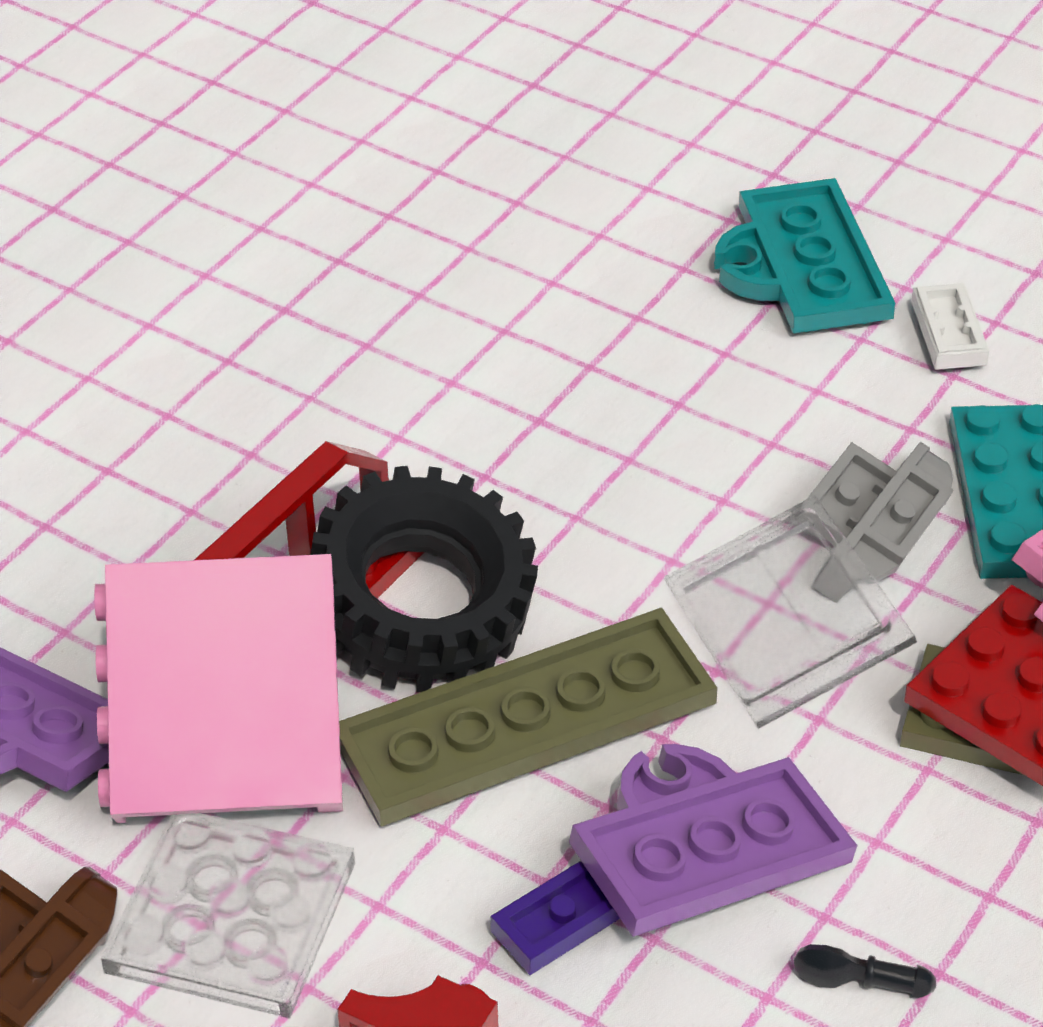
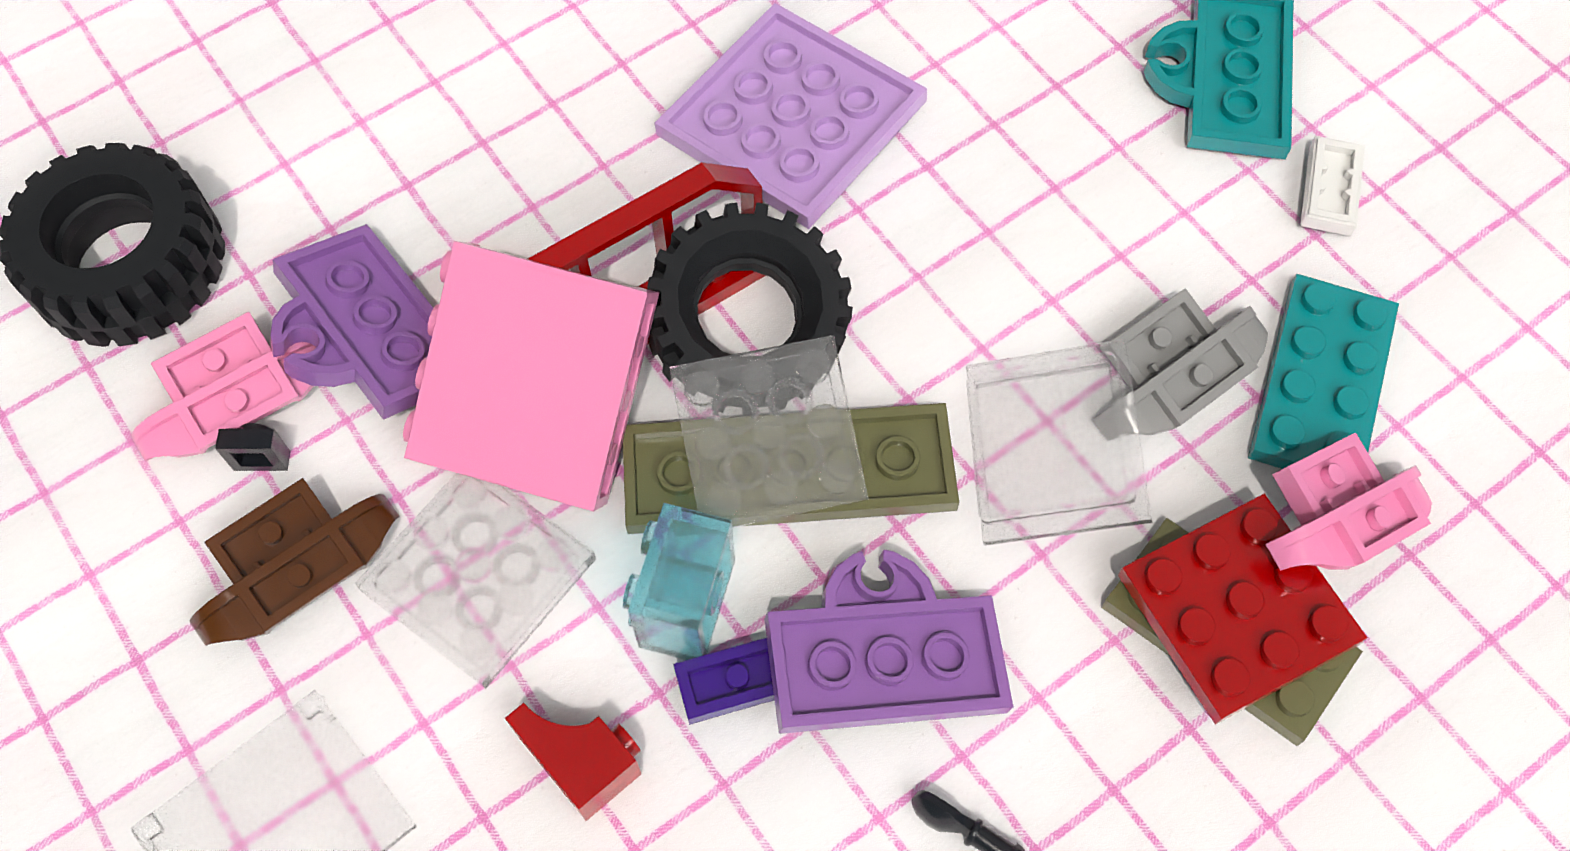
camera: 20 degrees right, 20 degrees up
(379, 391) = (793, 112): none -> lavender plate
(467, 831) = (681, 582): none -> clear light blue brick
(497, 673) = (769, 432): none -> clear plate

